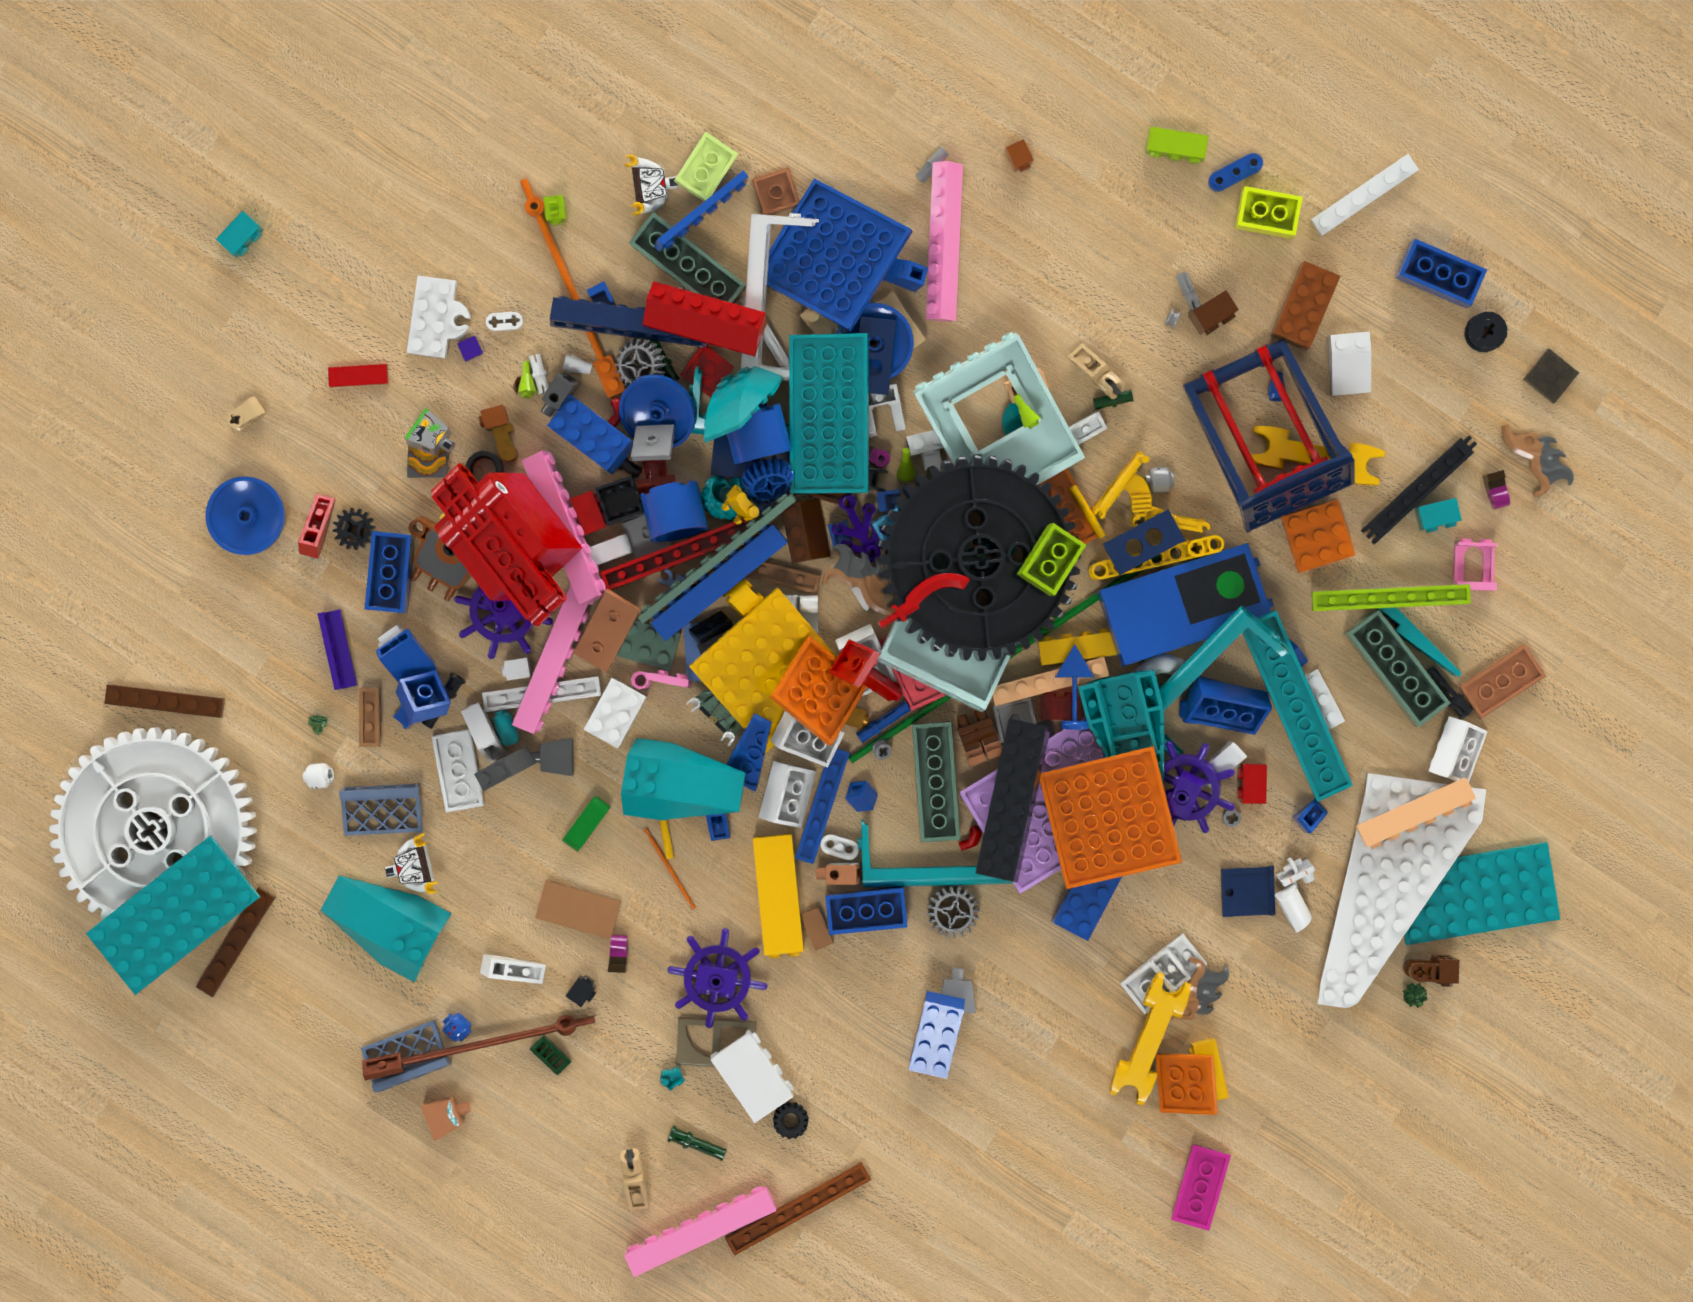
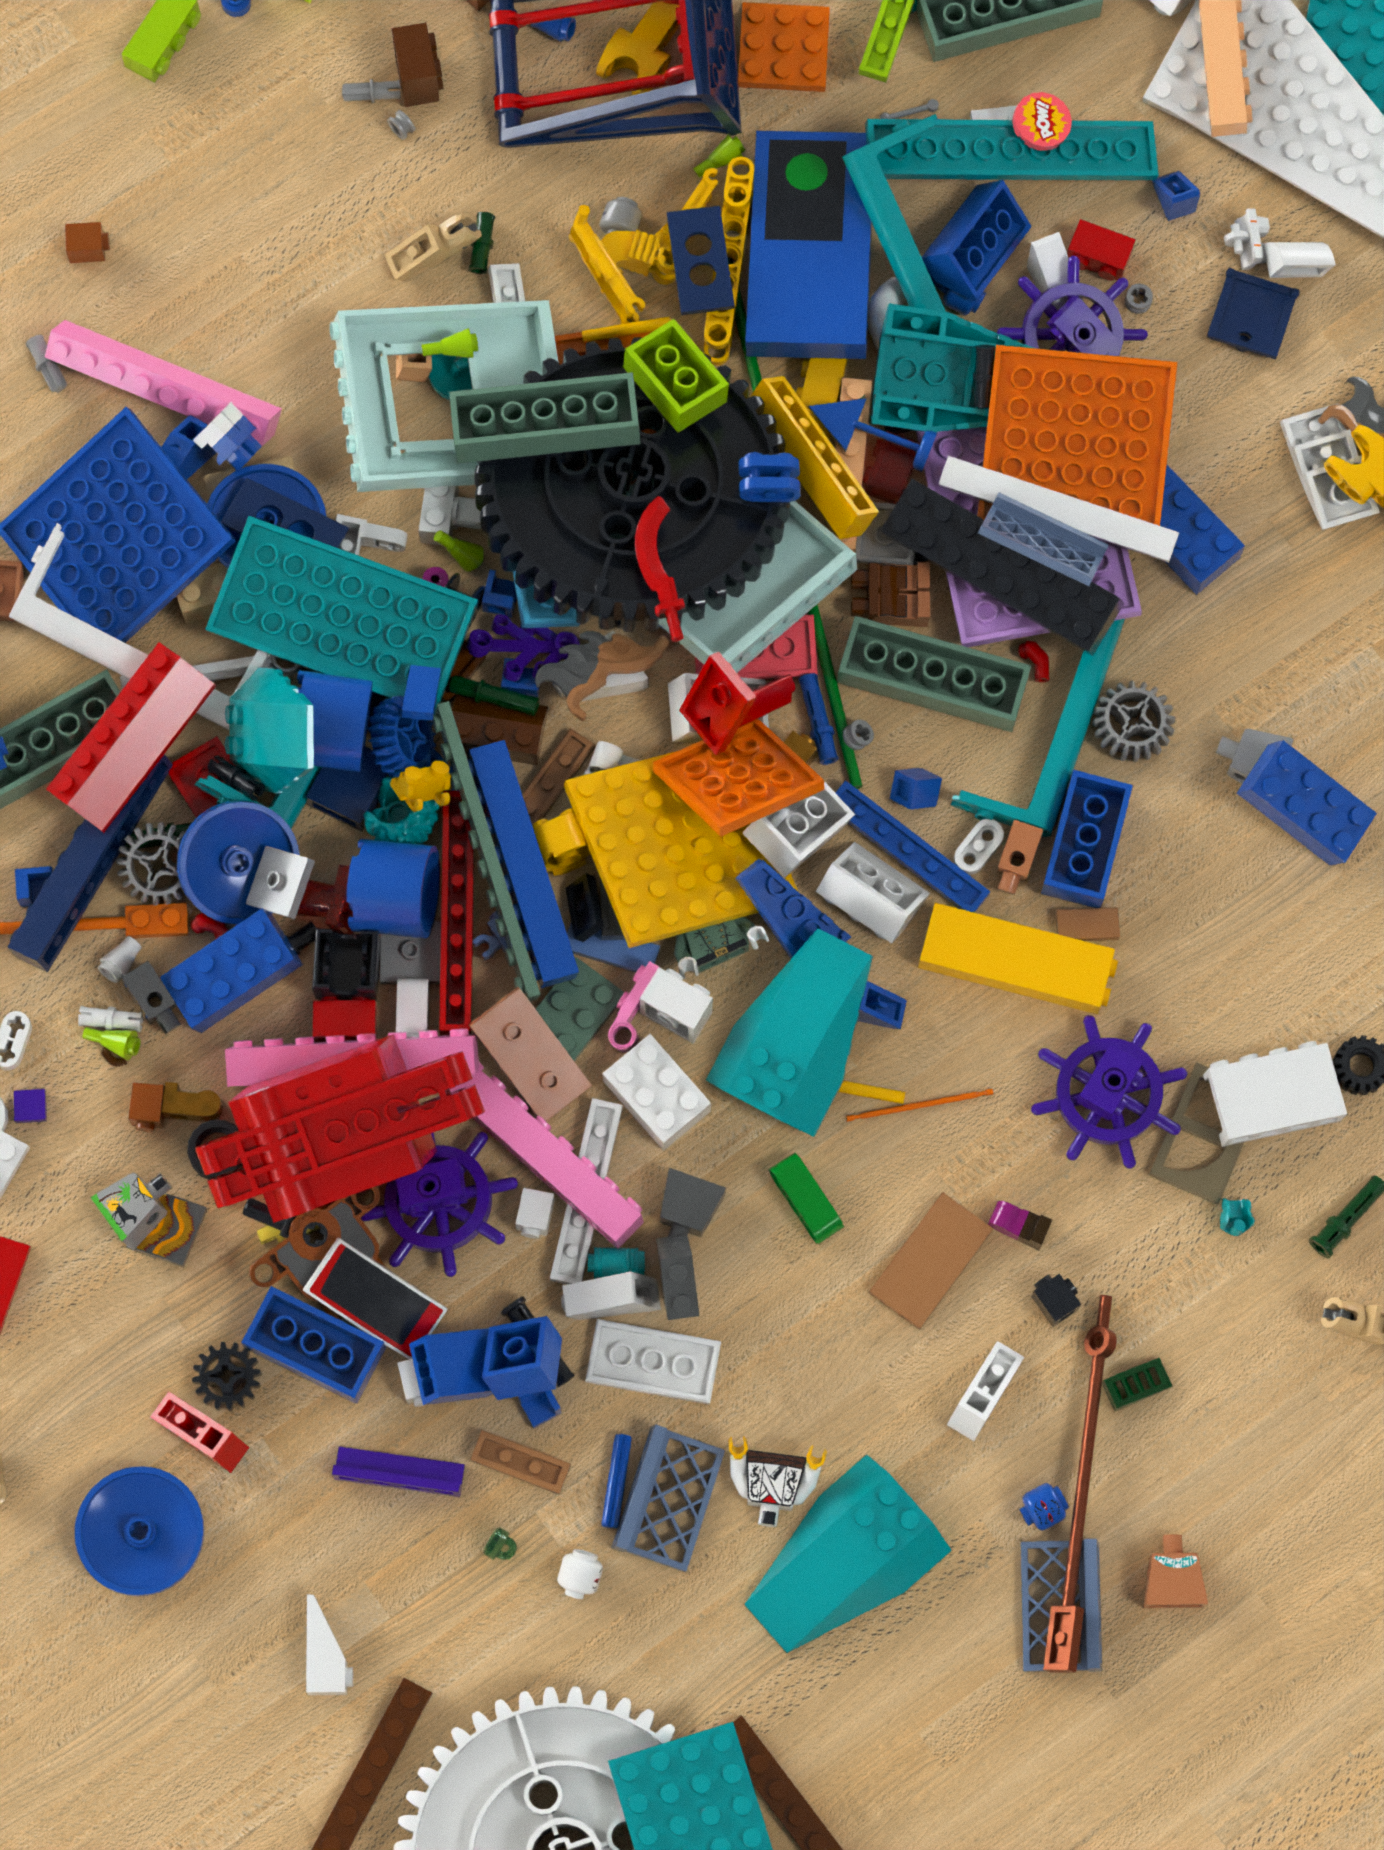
camera: 70 degrees left, 15 degrees down
(214, 651) = (325, 1661): none -> white slope
(380, 776) = (616, 1481): none -> blue axle
(428, 597) = (373, 1297): none -> black slope
(670, 705) = (676, 1004): none -> white brick
(708, 389) = (236, 777): none -> black pin
(795, 482) = (421, 692): none -> blue tile
(821, 522) = (494, 695): none -> dark green axle
(917, 299) = (230, 437): none -> blue hips
(990, 490) = (544, 417): none -> sand green brick
(1010, 630) = (769, 477): none -> blue brick
(1039, 660) = (821, 467): none -> yellow brick
(1042, 823) = (1043, 539): none -> sand blue fence
(1063, 821) = (1079, 514): none -> white tile
(1133, 744) = (983, 375): none -> black pin
(1230, 527) = (721, 155): none -> lime cone
(1313, 643) = (931, 106): none -> light grey hinge
(1321, 718) = (1042, 121): none -> tile

